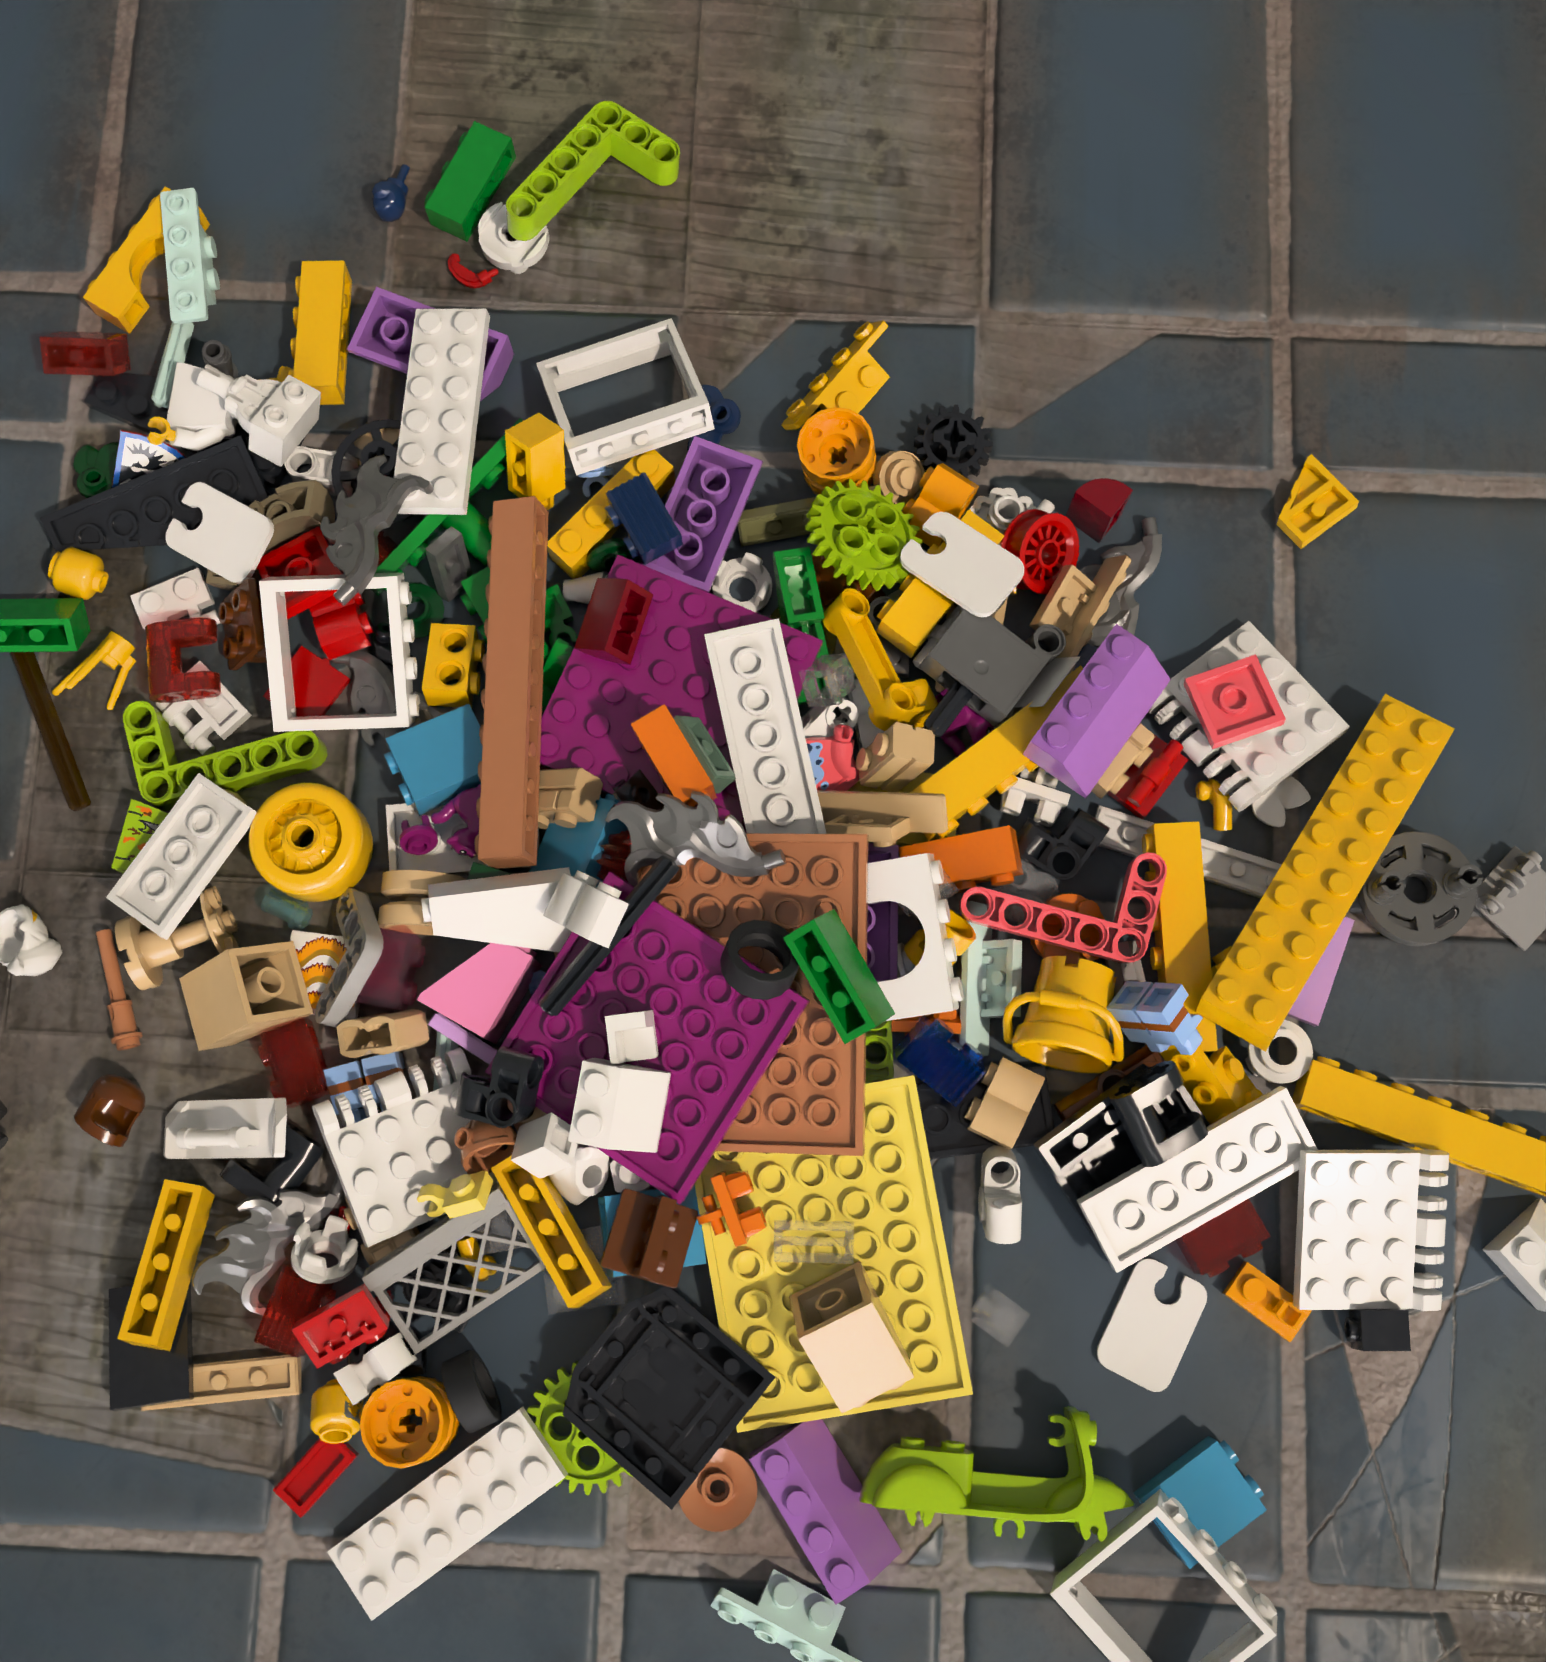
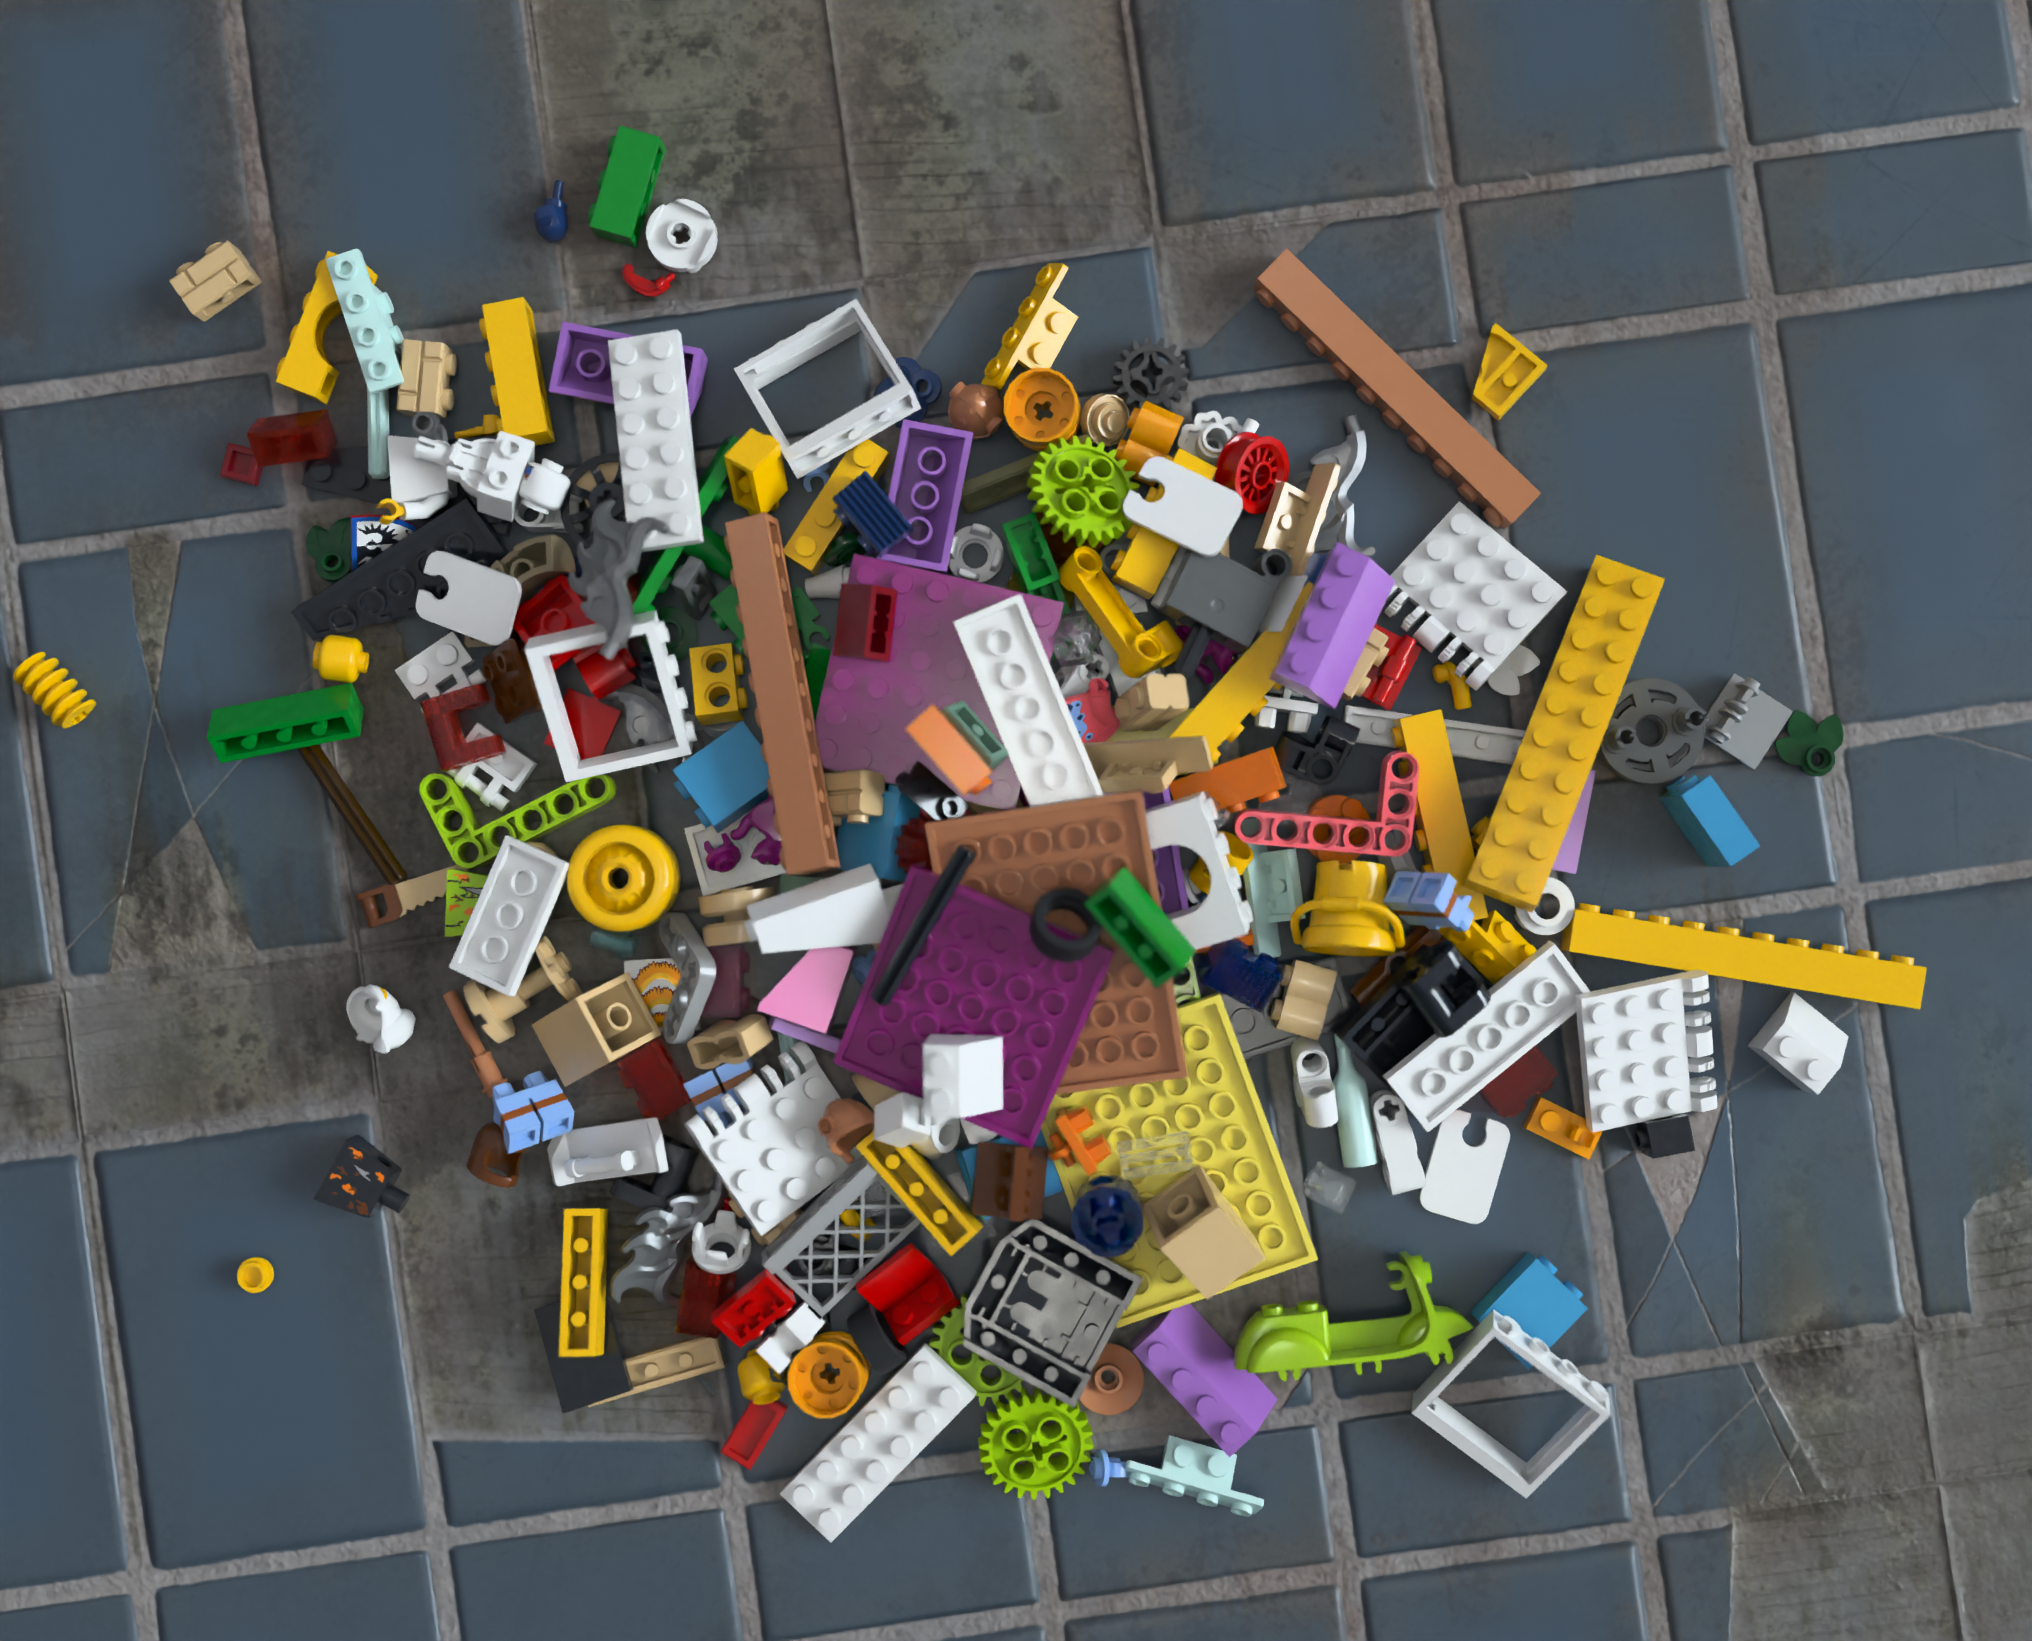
camera: 15 degrees left, 10 degrees up
(29, 375) = (240, 465): none -> dark red tile
(50, 198) = (214, 280): none -> tan brick
(79, 825) = (404, 896): none -> piece
(112, 652) = (390, 728): yellow plant -> none
(156, 1070) = (531, 1113): none -> light blue hips
(233, 320) = (426, 378): none -> tan brick
(320, 436) = (544, 486): none -> white head
(464, 1196) = (836, 1178): light yellow plate -> none
(513, 1078) = (860, 1067): black piece -> none
(515, 1345) = (908, 1292): none -> red bracket
(587, 908) = (898, 906): white brick -> none
(601, 133) = (735, 148): lime beam -> none
(624, 1583) = (1042, 1470): none -> lime gear
(631, 1037) = (961, 1011): white panel -> none
(689, 833) = (975, 819): piece -> none
(691, 1592) = (1103, 1467): none -> light blue plate
(749, 1297) = (1107, 1215): none -> clear blue brick
(772, 443) = (976, 409): none -> nougat helmet
(1038, 1238) = (1354, 1112): none -> light aqua piece
(1079, 1284) = (1396, 1144): none -> white piece
(1098, 506) = (1301, 418): dark red brick -> none
(1201, 502) = (1395, 390): none -> nougat brick
(1234, 701) = (1457, 588): coral plate -> none
(1469, 990) = (1708, 820): none -> dark azure brick

